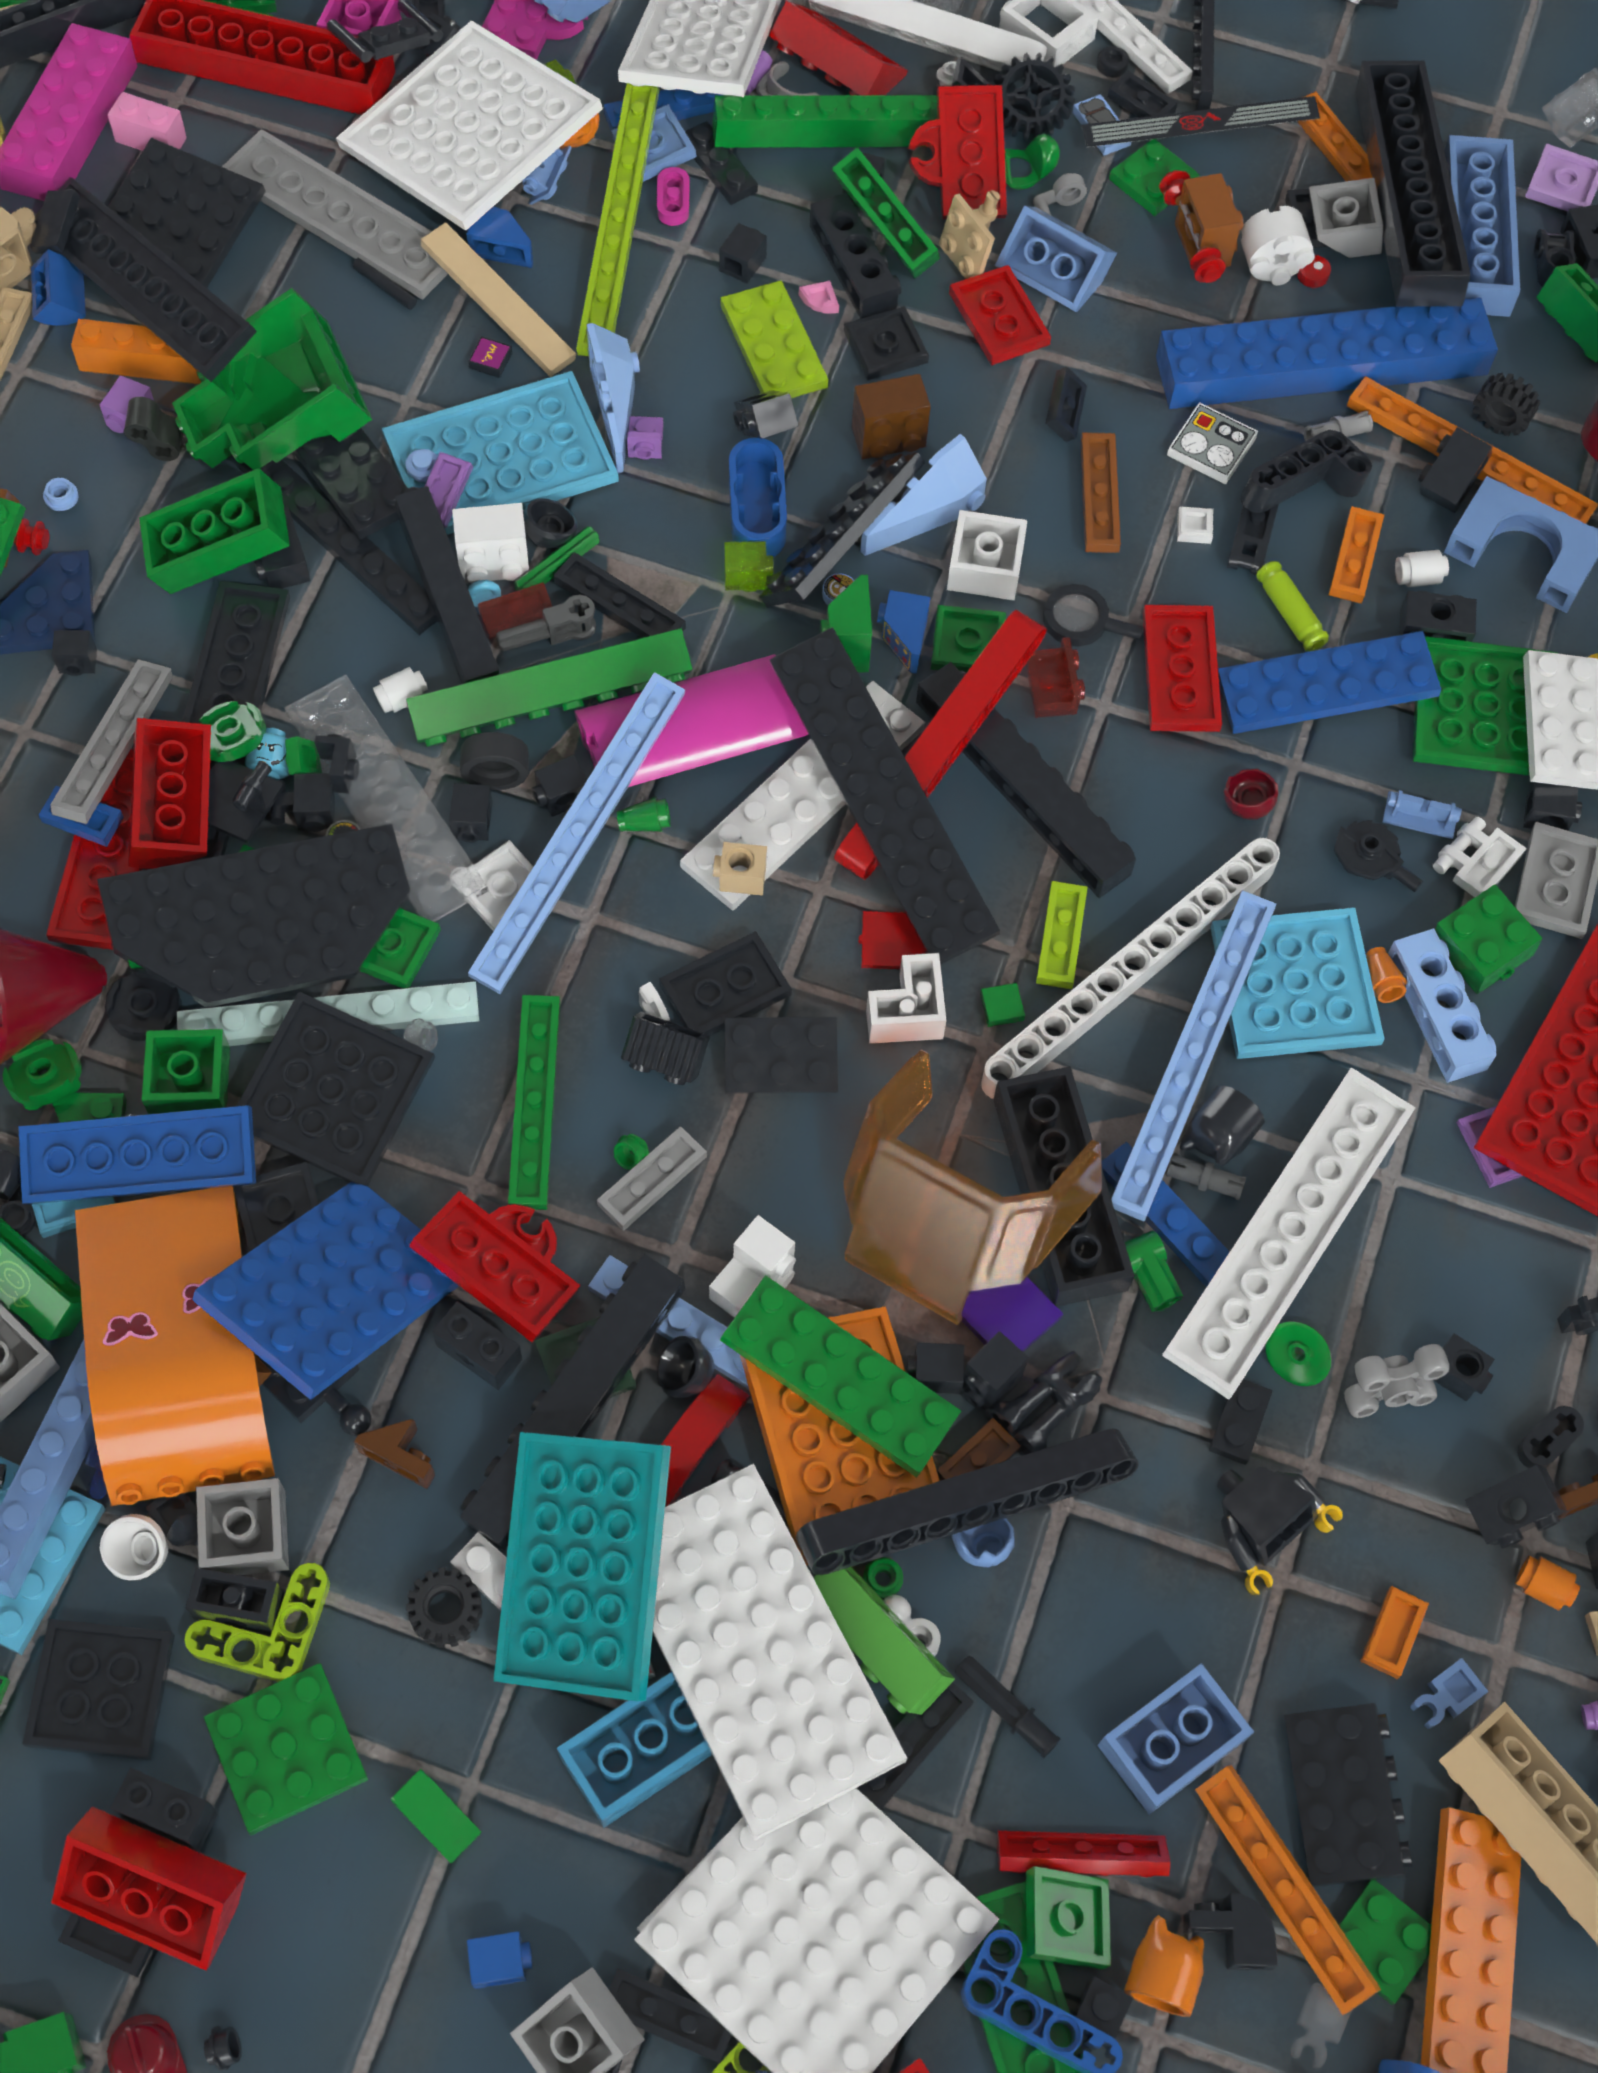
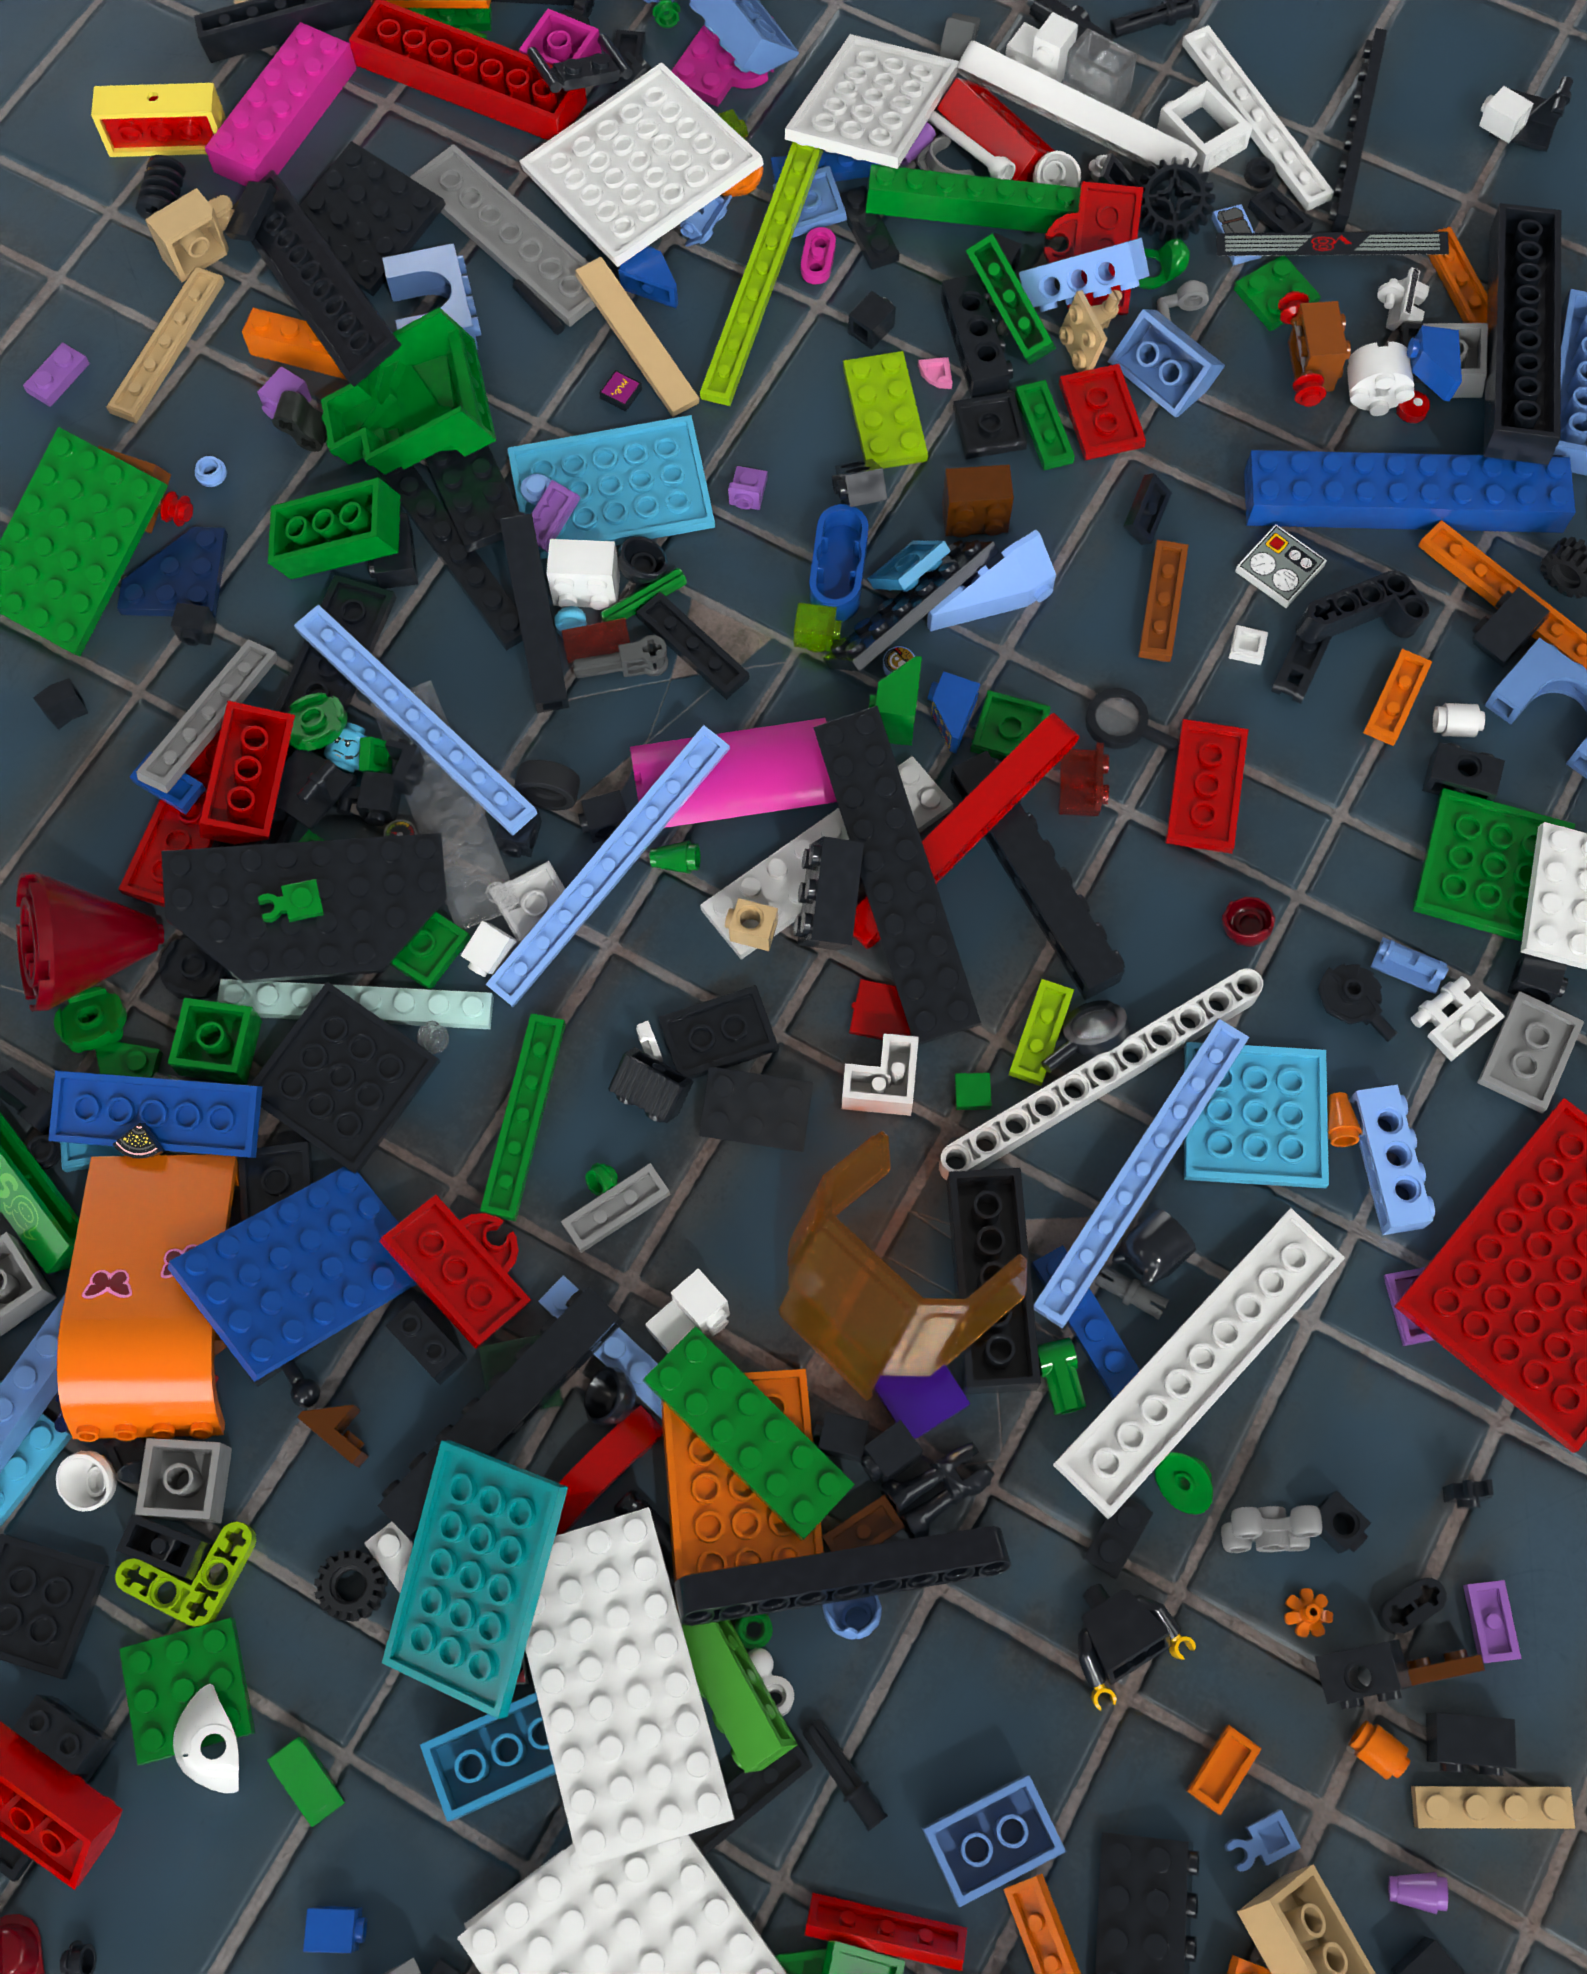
camera: 15 degrees right, 5 degrees up
(57, 290) = (243, 276): blue brick -> none
(126, 1187) = (139, 1143): none -> black tile
(139, 120) = (346, 122): bright pink brick -> none
(253, 909) = (298, 901): none -> green plate
(264, 262) = (433, 273): none -> medium blue arch
(309, 1767) = (199, 1719): none -> white piece
(341, 713) = (416, 720): none -> light blue plate
(397, 688) = (477, 702): white brick -> none
(464, 936) = (488, 949): none -> white brick
(548, 686) = (610, 719): green brick -> none
(614, 383) = (728, 434): light blue wedge -> none
(817, 825) = (829, 893): none -> black brick
(832, 490) = (909, 564): none -> dark azure plate
(844, 84) = (997, 166): none -> white piece
(907, 79) = (1057, 169): none -> white piece
(943, 335) = (1044, 425): none -> green plate
(987, 555) = (1042, 649): white brick -> none
(1000, 154) = (1126, 258): none -> light blue brick
(1113, 924) = (1090, 1031): none -> black piece
(1282, 167) = (1399, 299): none -> white hips
(1292, 606) = (1325, 740): lime axle -> none
(1328, 682) = (1345, 821): blue plate -> none
(1331, 218) = (1437, 359): none -> blue slope
(1347, 425) = (1410, 566): light grey pin -> none
(1448, 1464) = (1301, 1613): none -> orange plant
(1487, 939) = (1448, 1101): green brick -> none

